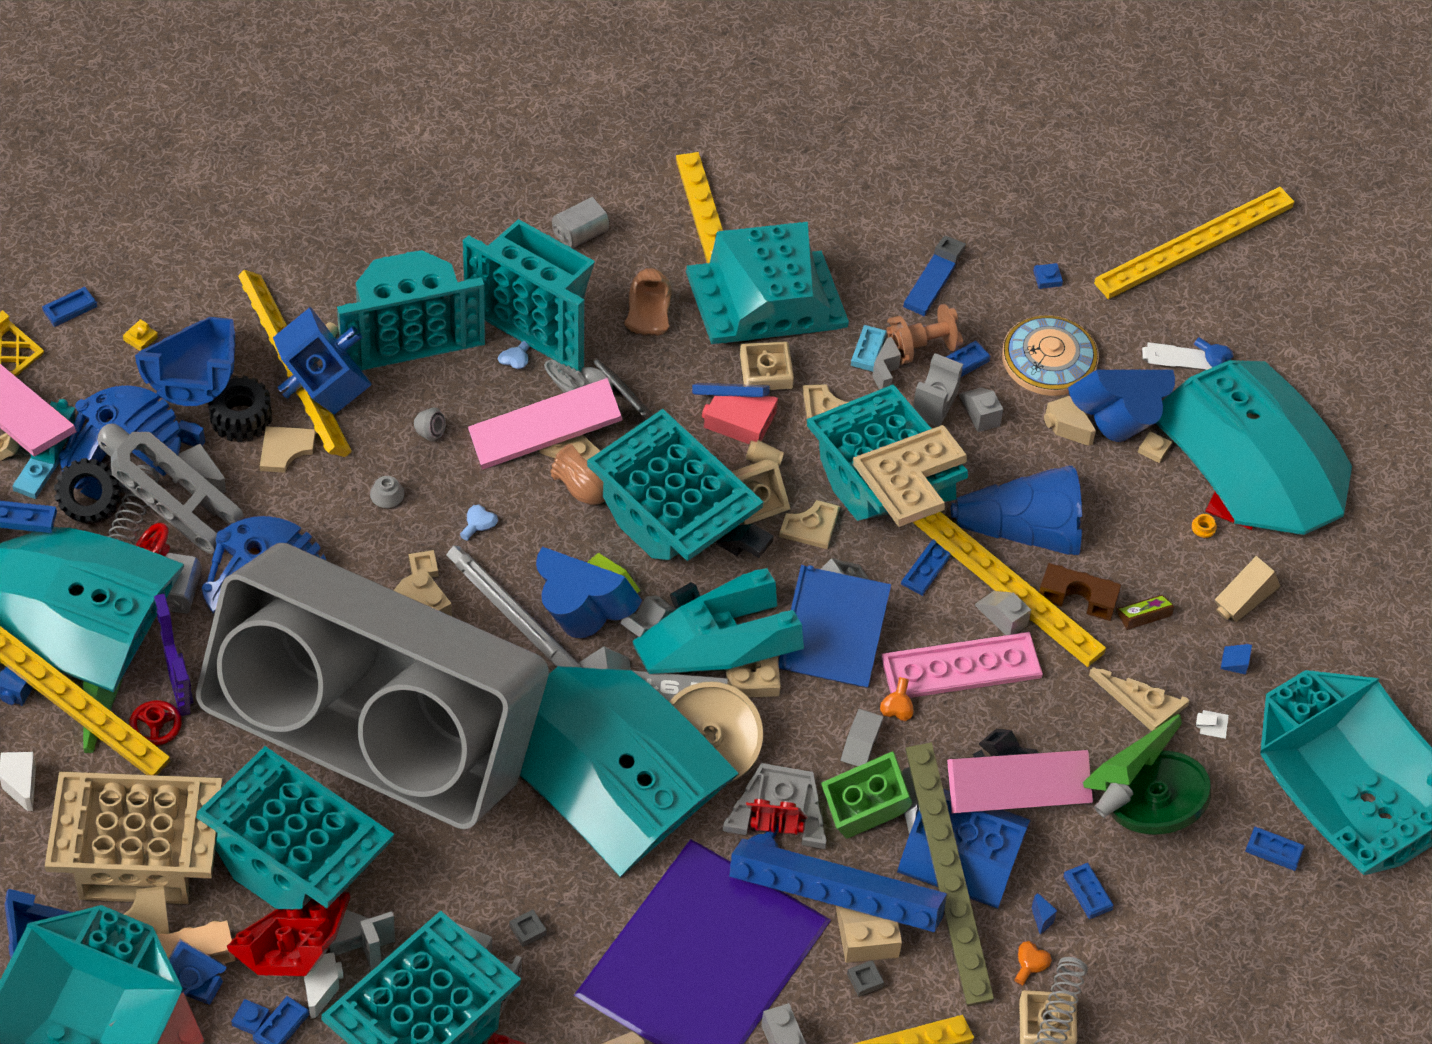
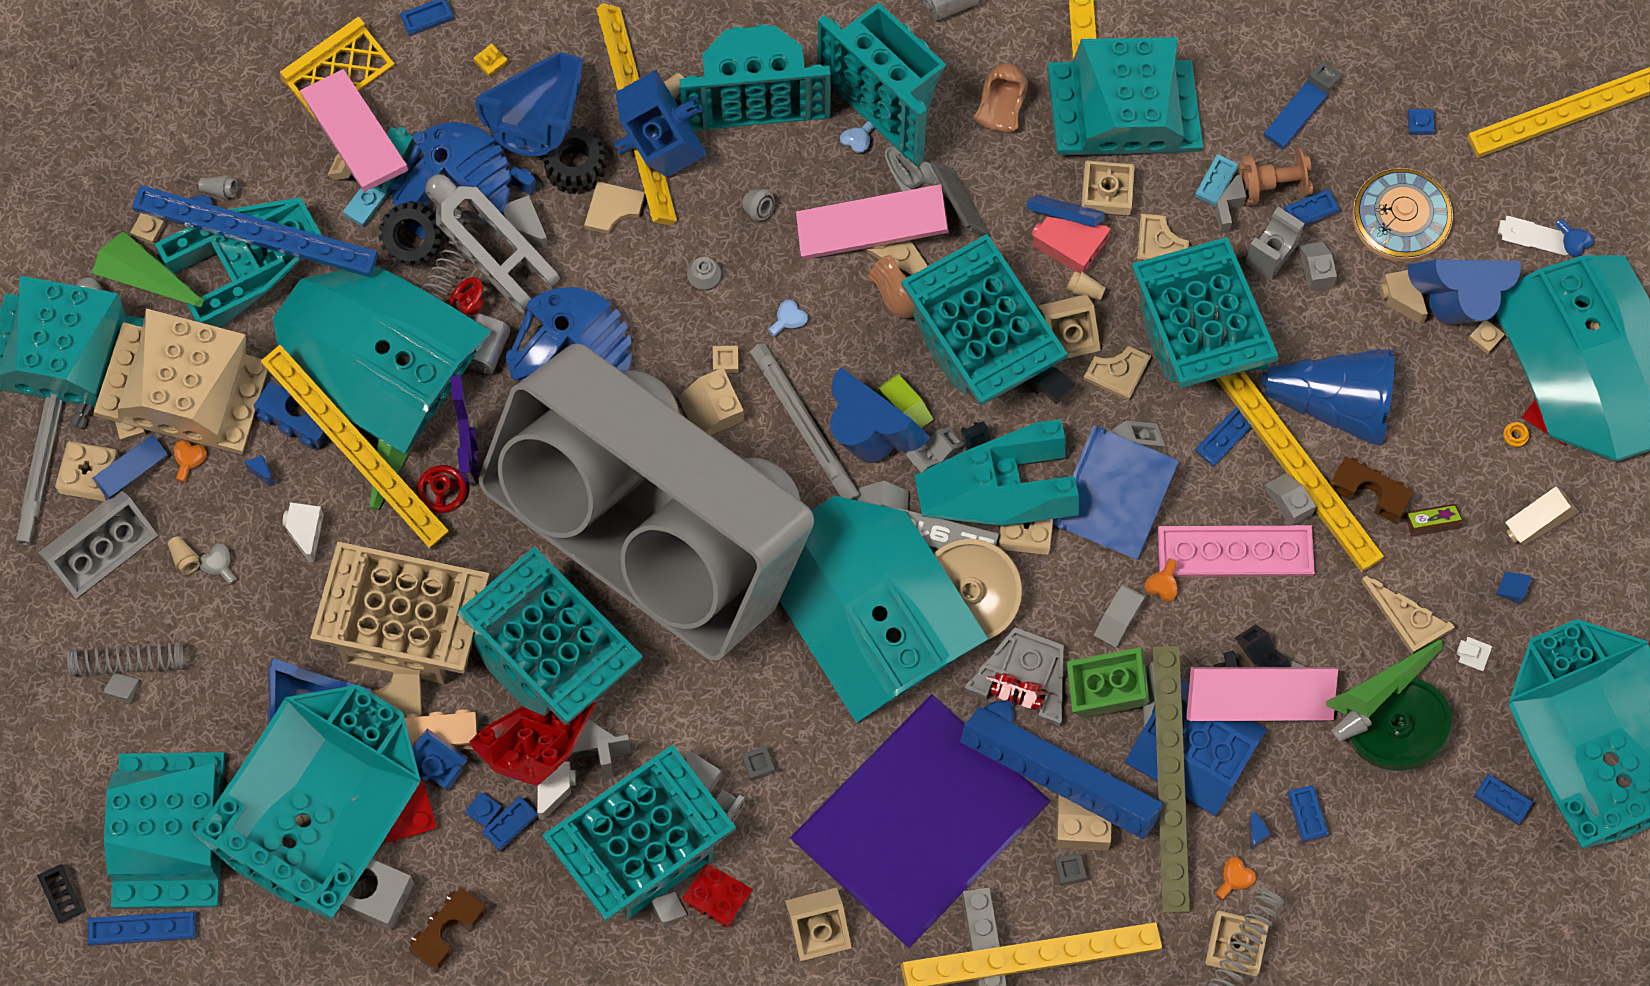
camera: 15 degrees right, 15 degrees up
(900, 472) = (1207, 344): tan plate -> none

